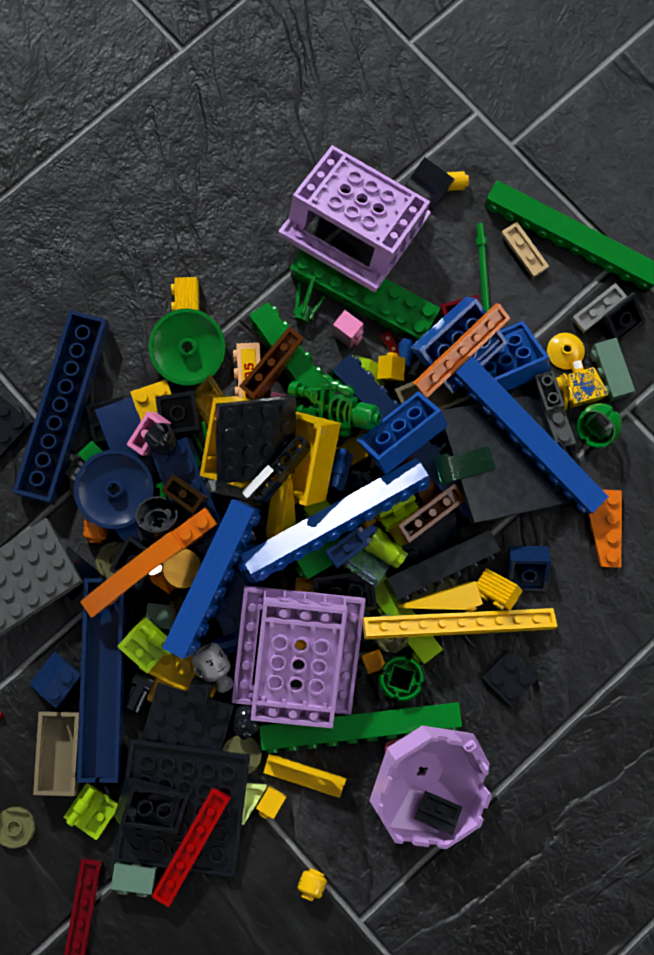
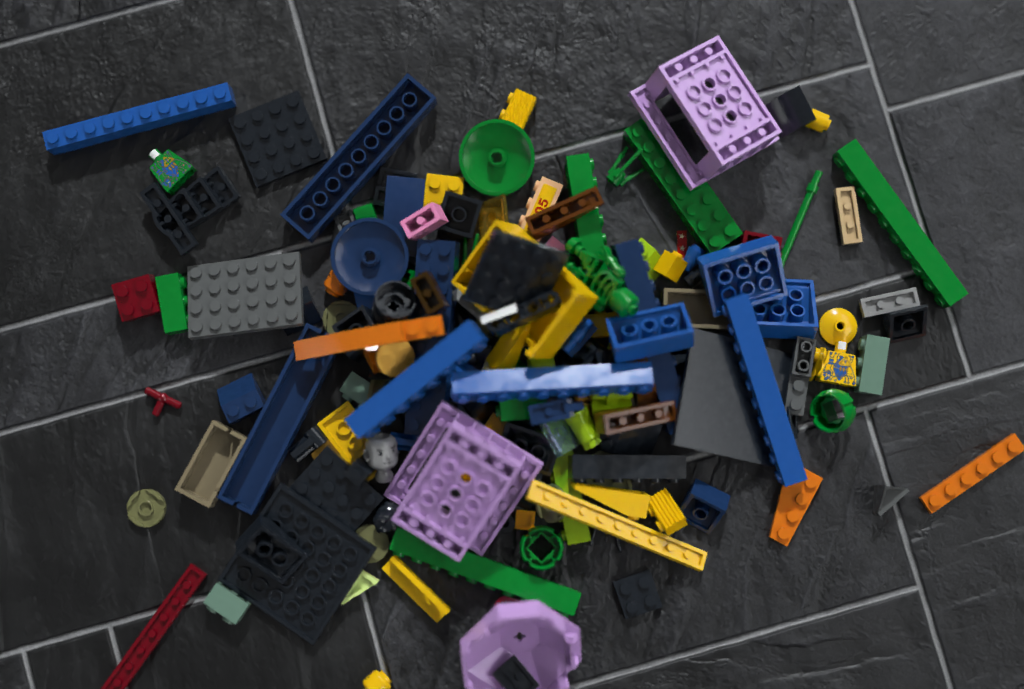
camera: 25 degrees right, 5 degrees up
(91, 811) = (218, 527): lime plate -> none
(144, 644) = (331, 407): lime plate -> none
(161, 439) = (432, 233): black hair -> none
(190, 847) = (288, 601): red plate -> none
(270, 803) = (375, 597): yellow brick -> none
(348, 329) = (649, 212): bright pink brick -> none
(461, 350) = (741, 283): orange plate -> none
(464, 464) = (691, 388): clear green door -> none

